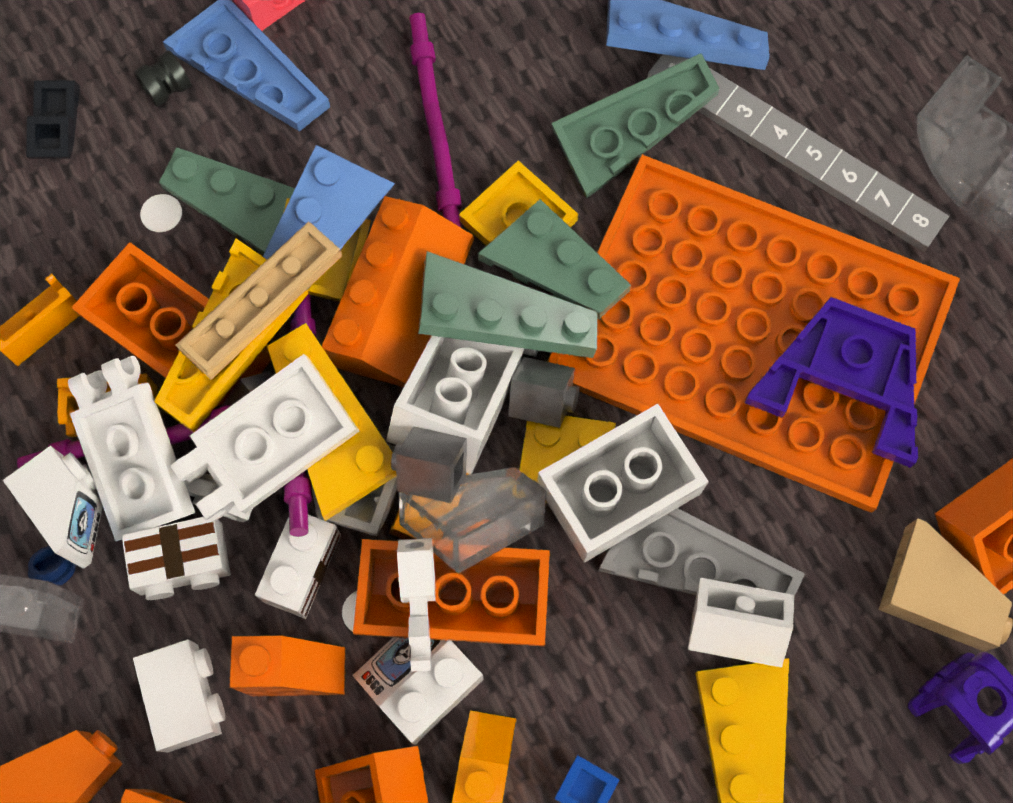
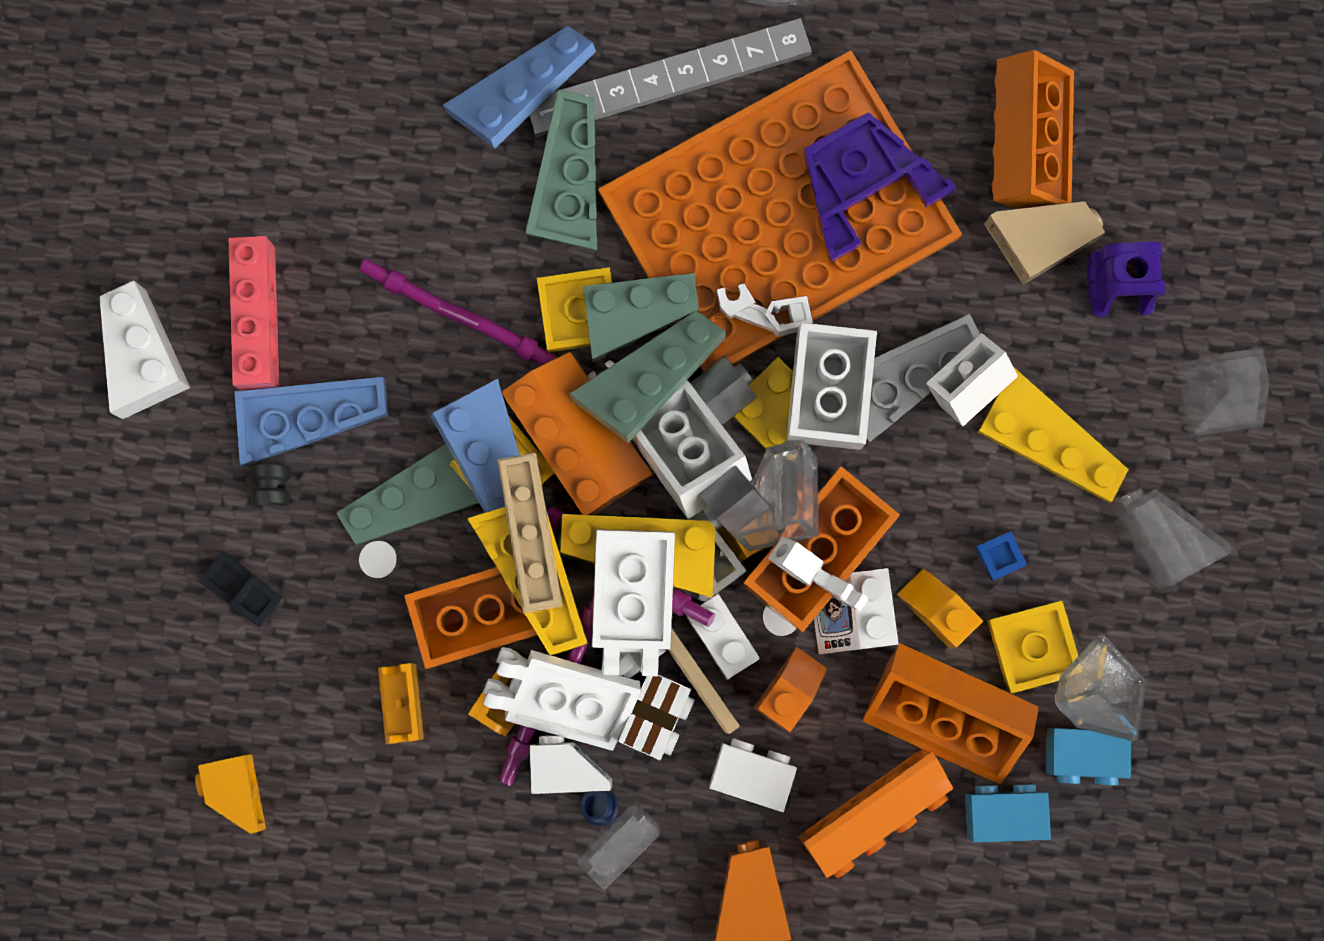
camera: 55 degrees left, 10 degrees up
(242, 570) = (702, 685): none -> tan tile
(634, 357) = (746, 310): none -> white piece

